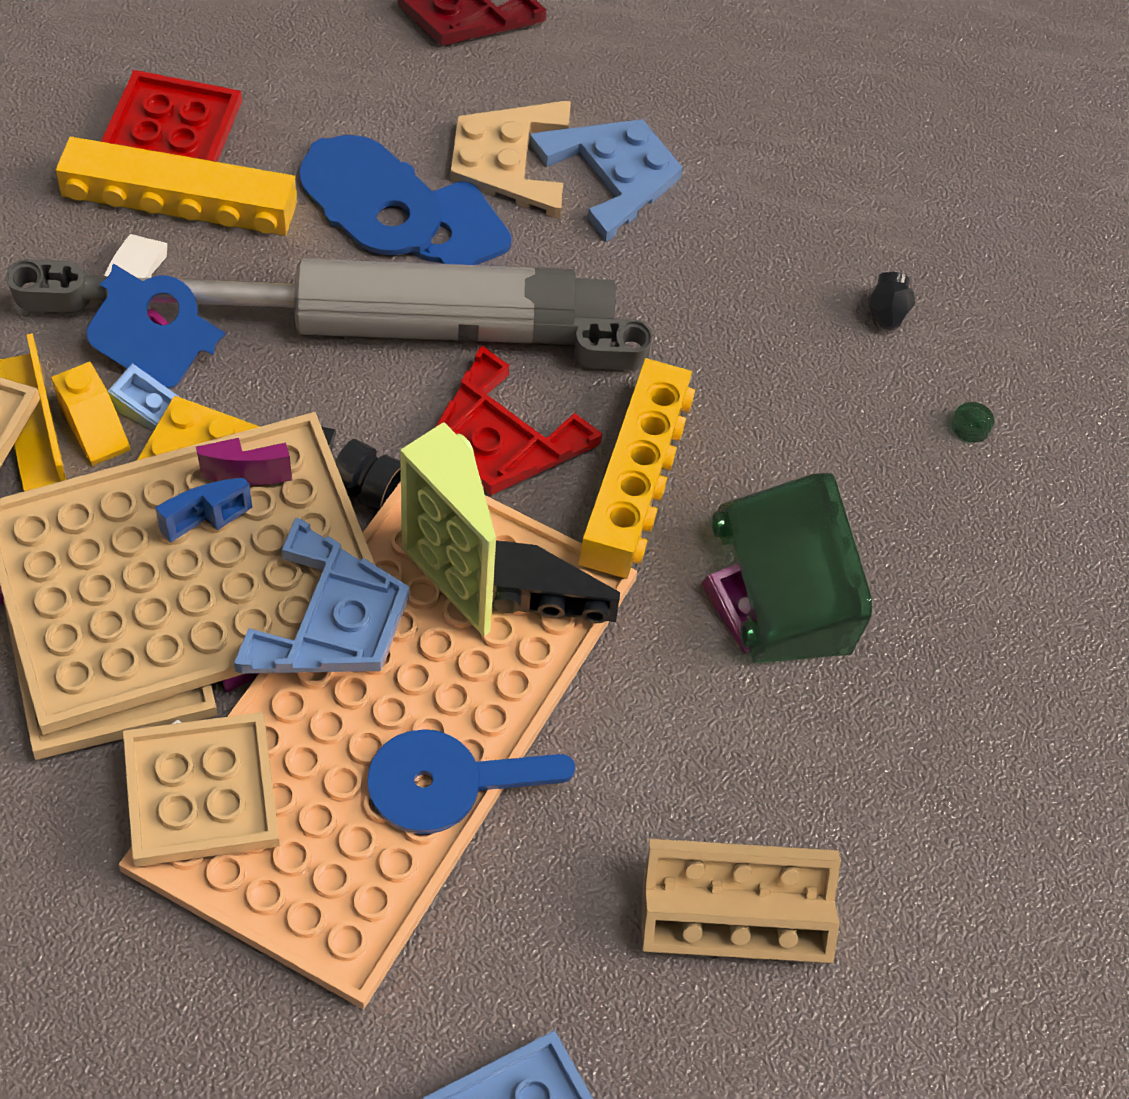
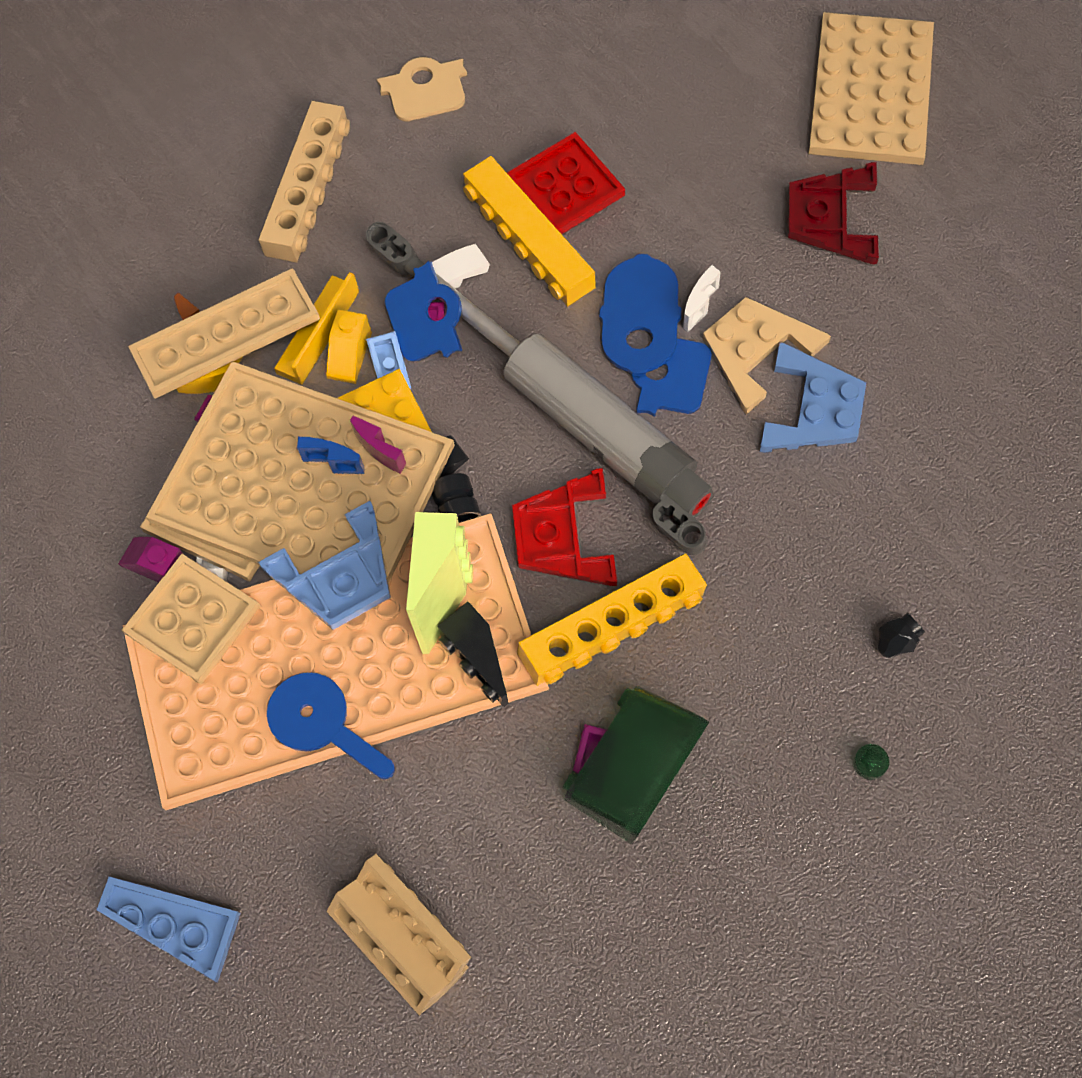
camera: 55 degrees right, 10 degrees up
(79, 774) = (149, 557): none -> magenta slope
(417, 142) = (699, 298): none -> white slope

